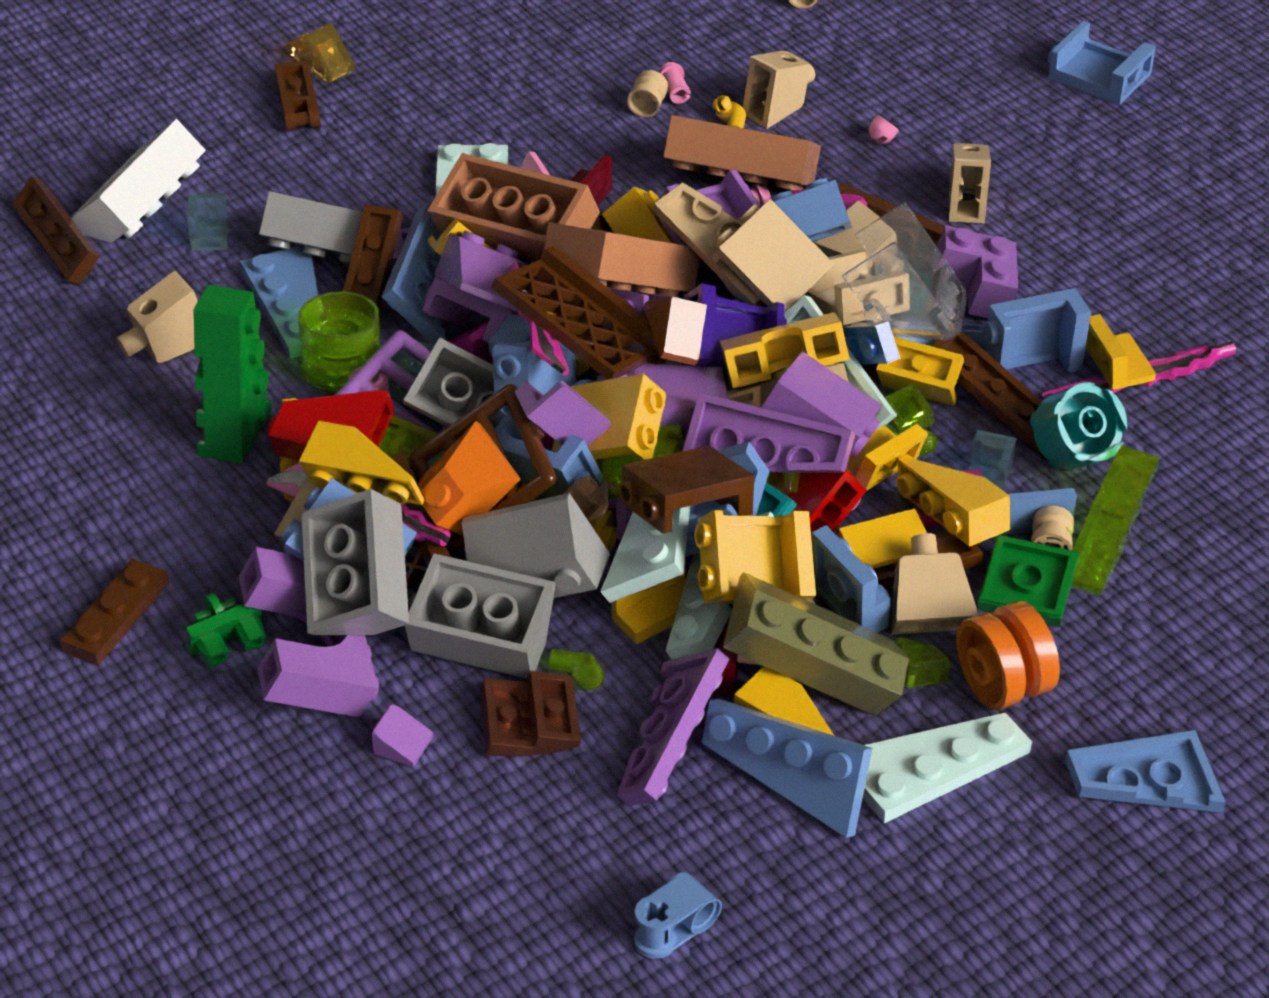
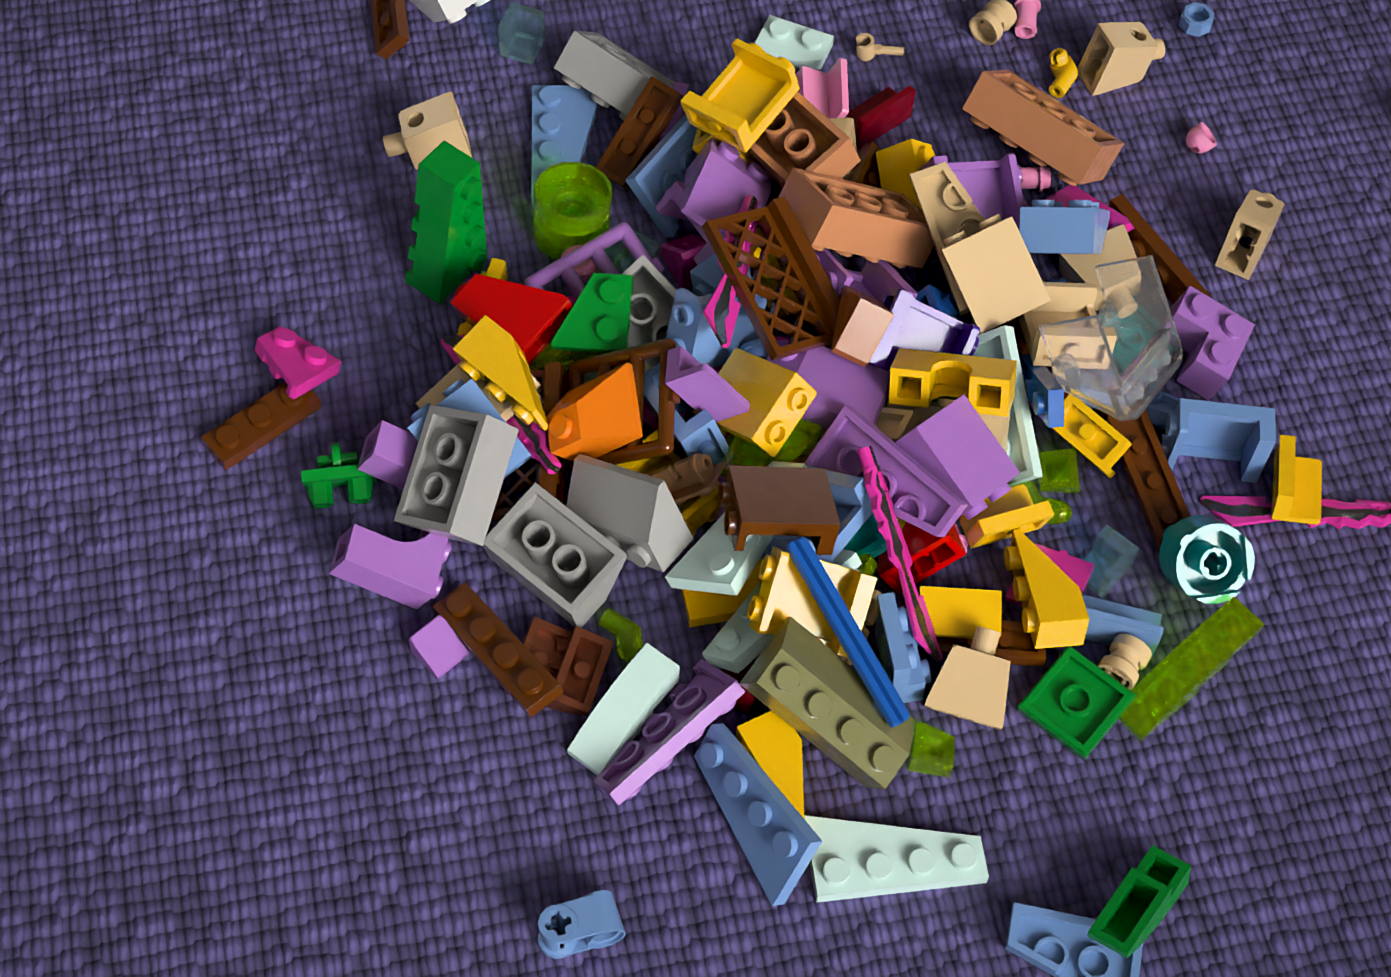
camera: 20 degrees right, 15 degrees up
(111, 543) = (295, 360): none -> dark pink wing
(421, 403) = (599, 316): none -> green wing
(468, 184) = (743, 96): none -> yellow panel
(468, 714) = (498, 650): none -> reddish brown plate
(543, 146) = (867, 48): none -> tan hand
(615, 722) = (624, 708): none -> light aqua slope
(754, 435) = (898, 552): none -> dark pink sword
(804, 567) = (847, 631): none -> blue axle
(826, 45) = (1196, 19): none -> medium blue tile
(1007, 655) = (1005, 784): orange wheel -> none
(1181, 703) = (1141, 902): none -> green slope

